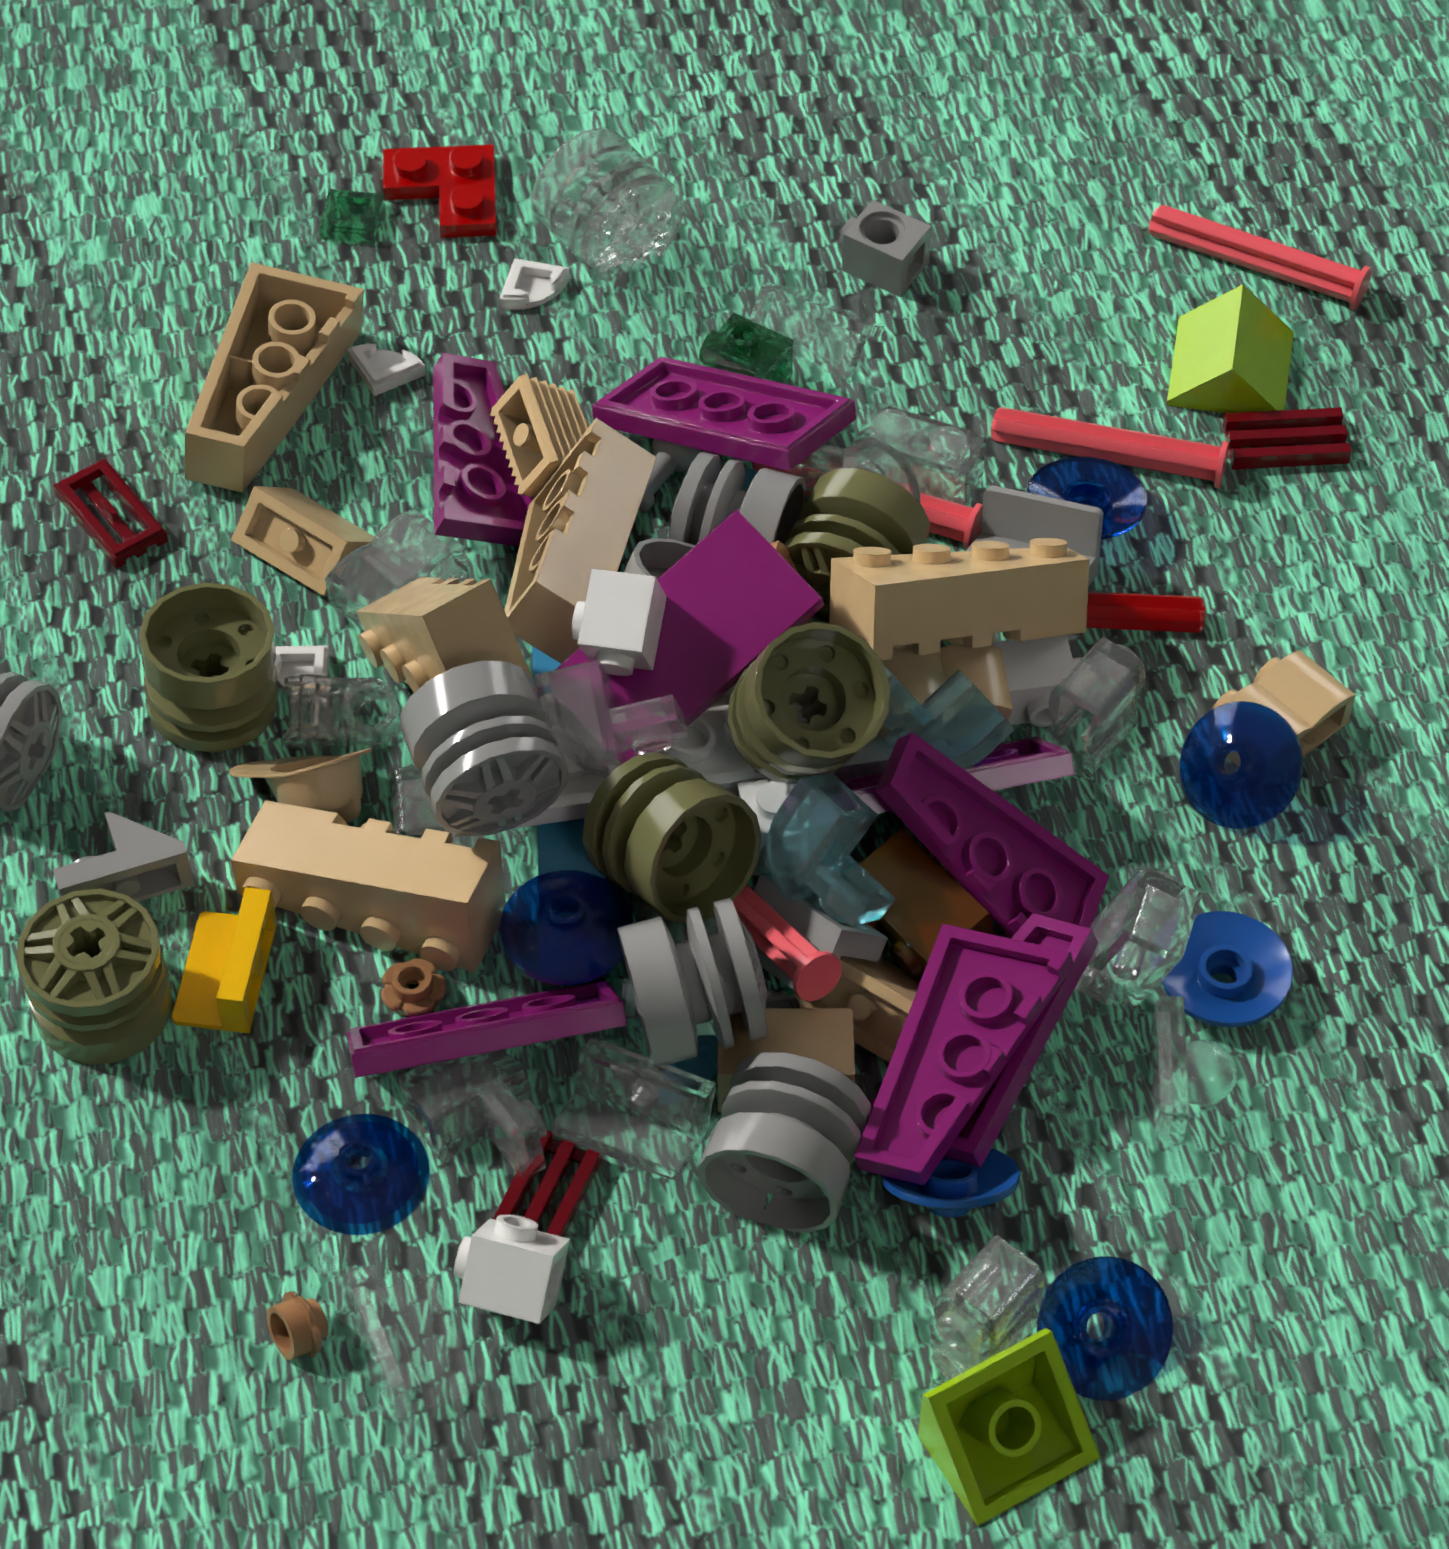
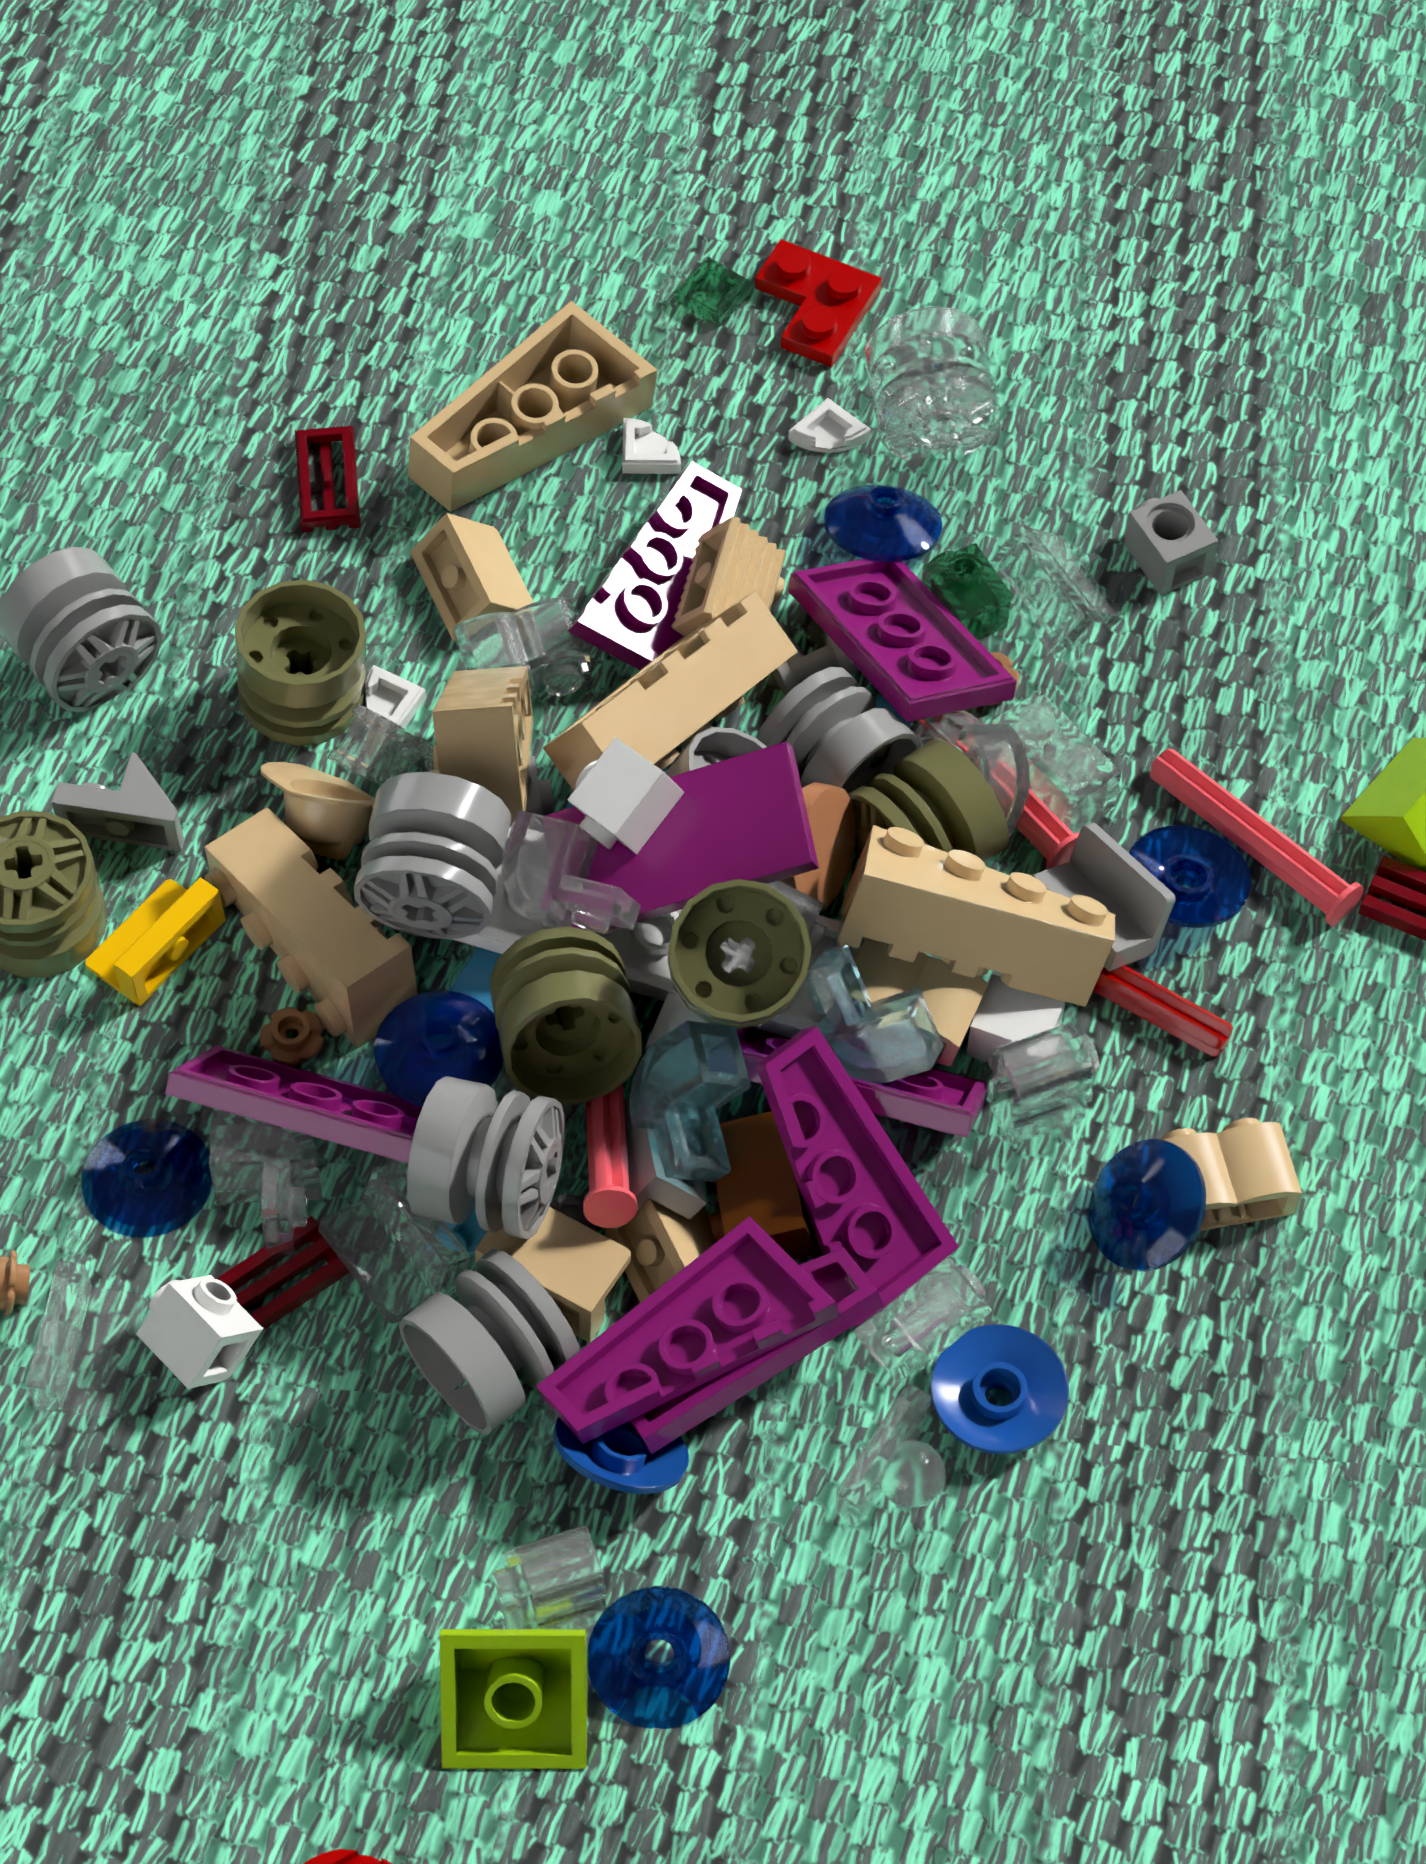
camera: 30 degrees right, 5 degrees up
(632, 337) = (883, 523): none -> clear blue dish

